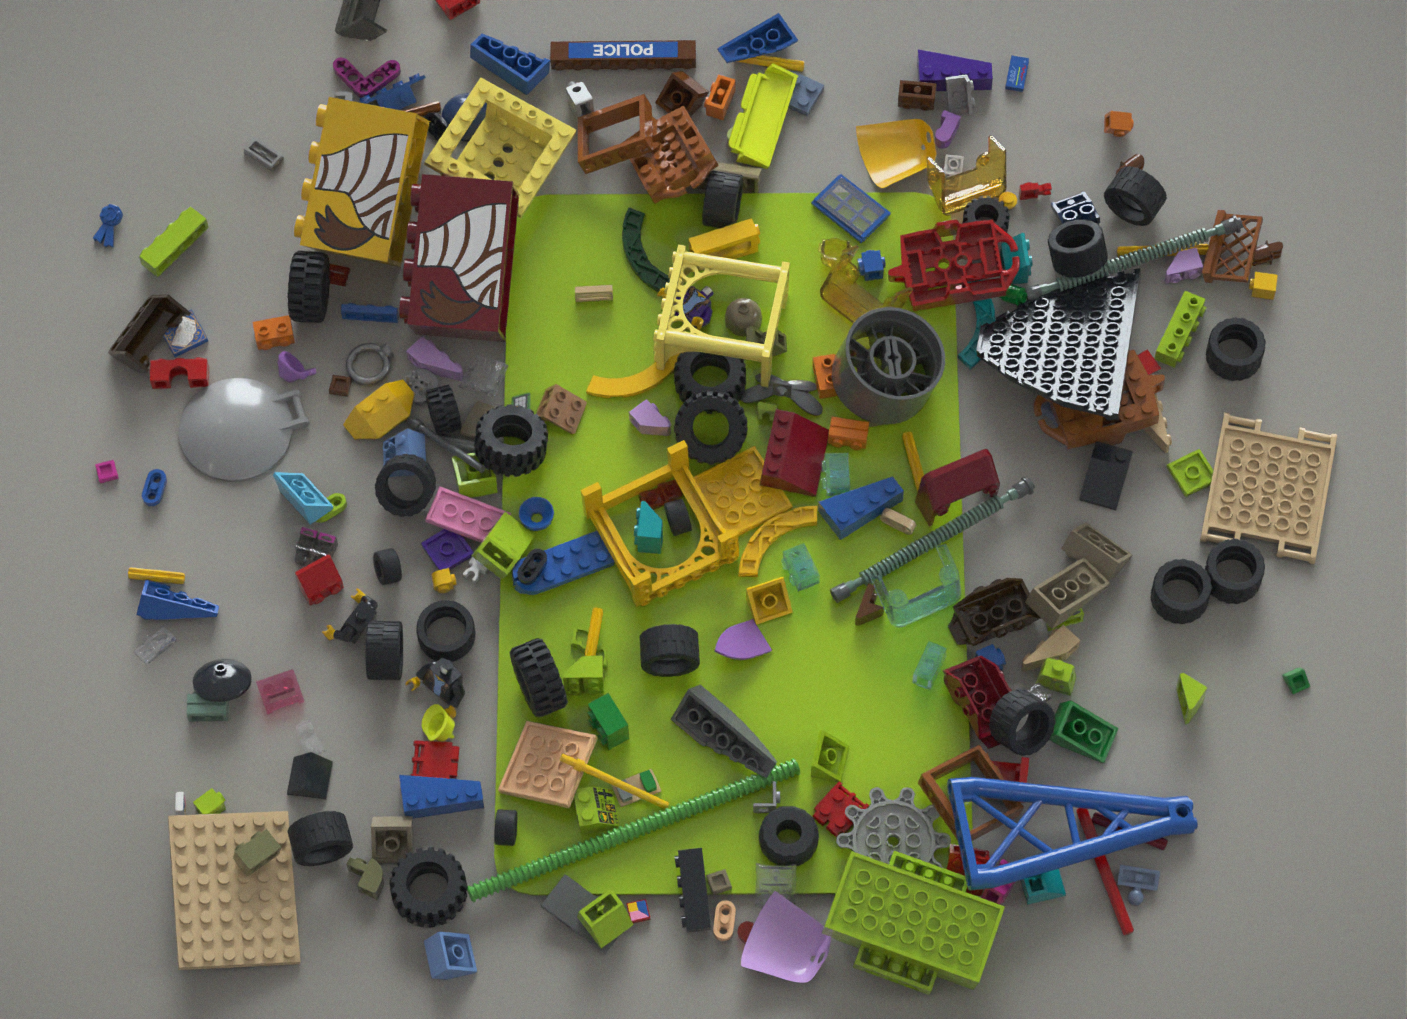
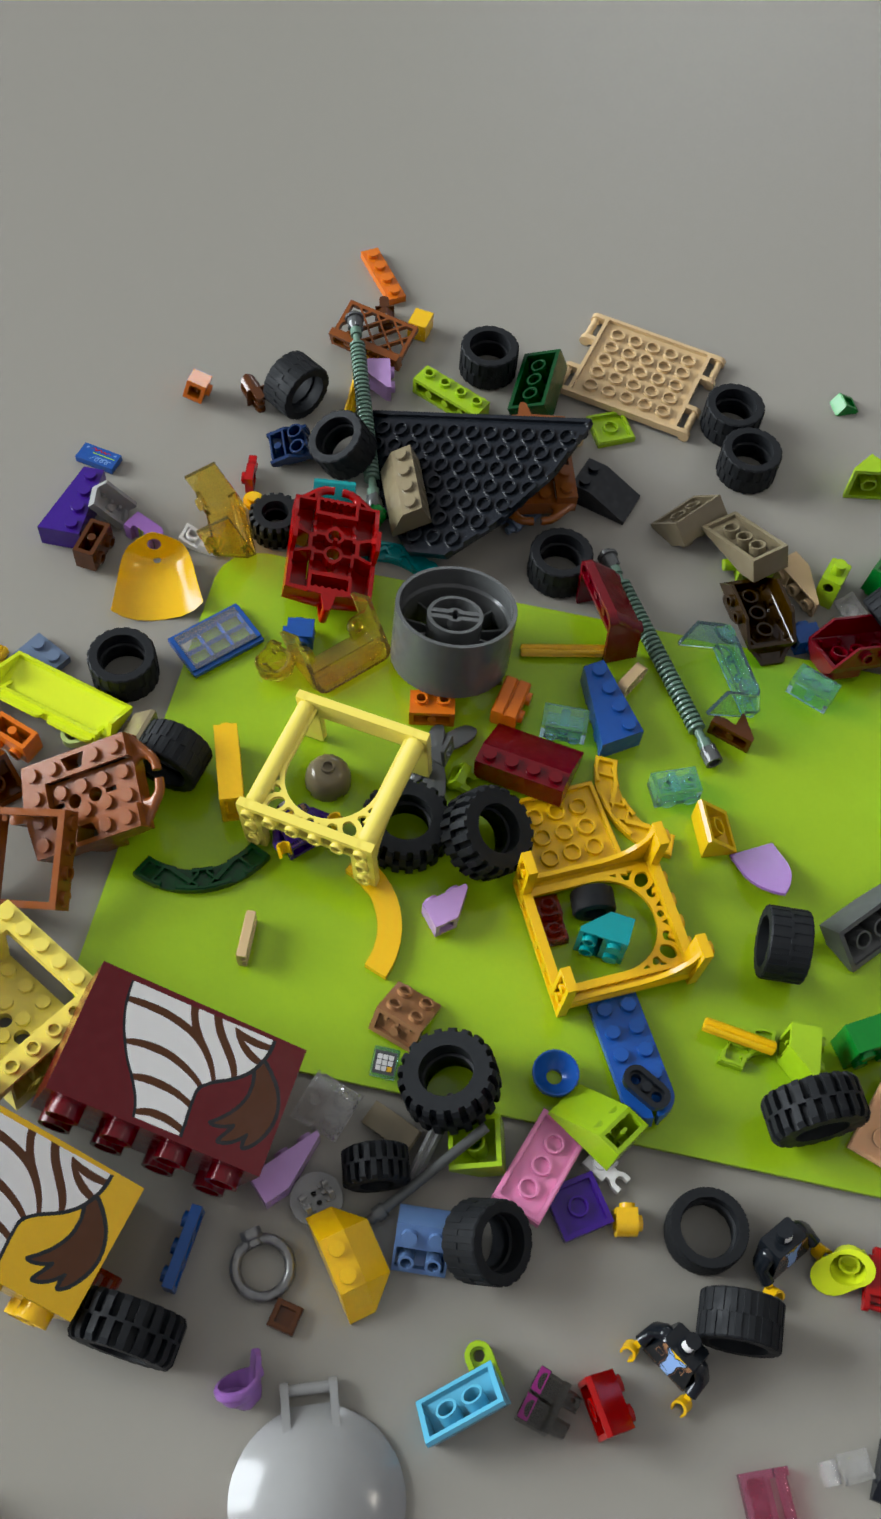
camera: 85 degrees left, 5 degrees down
(273, 332) = (172, 1406): orange brick -> none
(387, 566) = (597, 1296): black tyre -> none
(756, 336) = (373, 758): olive brick -> none
(805, 131) = (121, 643): none -> black tyre
(1015, 428) = (559, 543): none -> black tyre
(1040, 309) = (404, 491): none -> dark tan slope
(1208, 396) = (539, 382): none -> dark green brick
(1323, 242) = (383, 276): none -> orange plate

